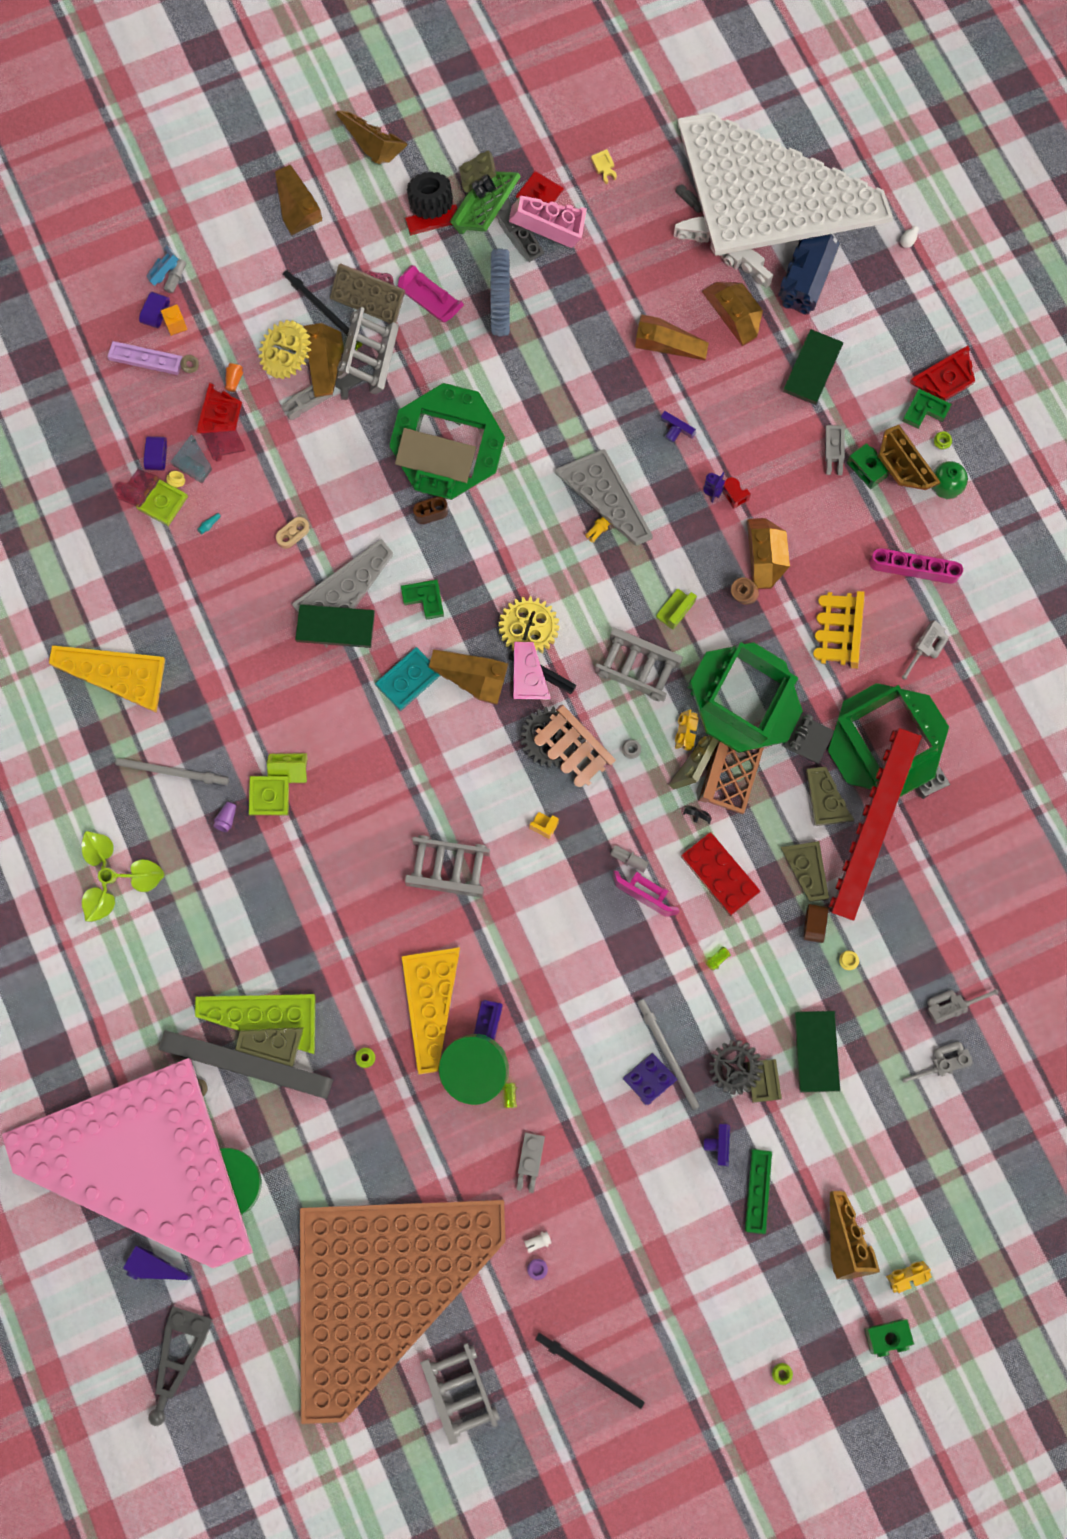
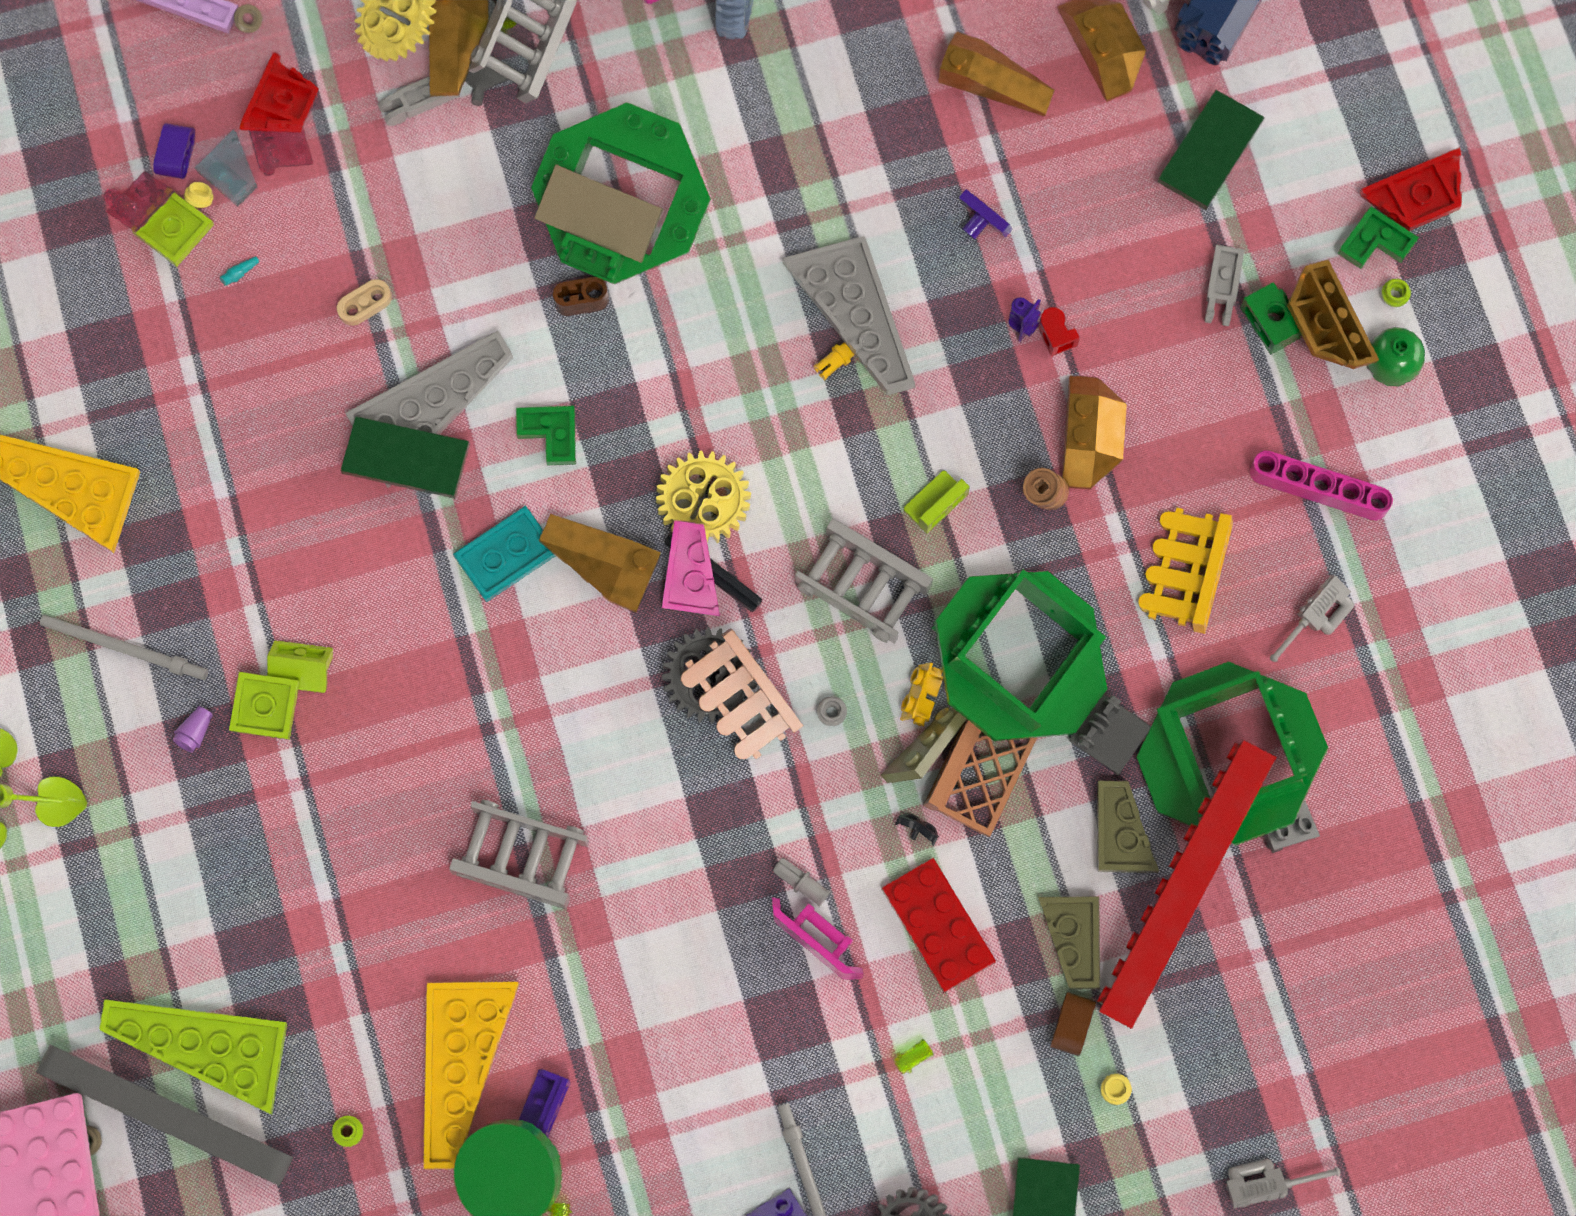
camera: 10 degrees right, 0 degrees up
(233, 376) = (311, 47): orange cone -> none
(271, 1044) = (207, 1089): olive wing -> none
(544, 825) = (678, 810): yellow panel -> none

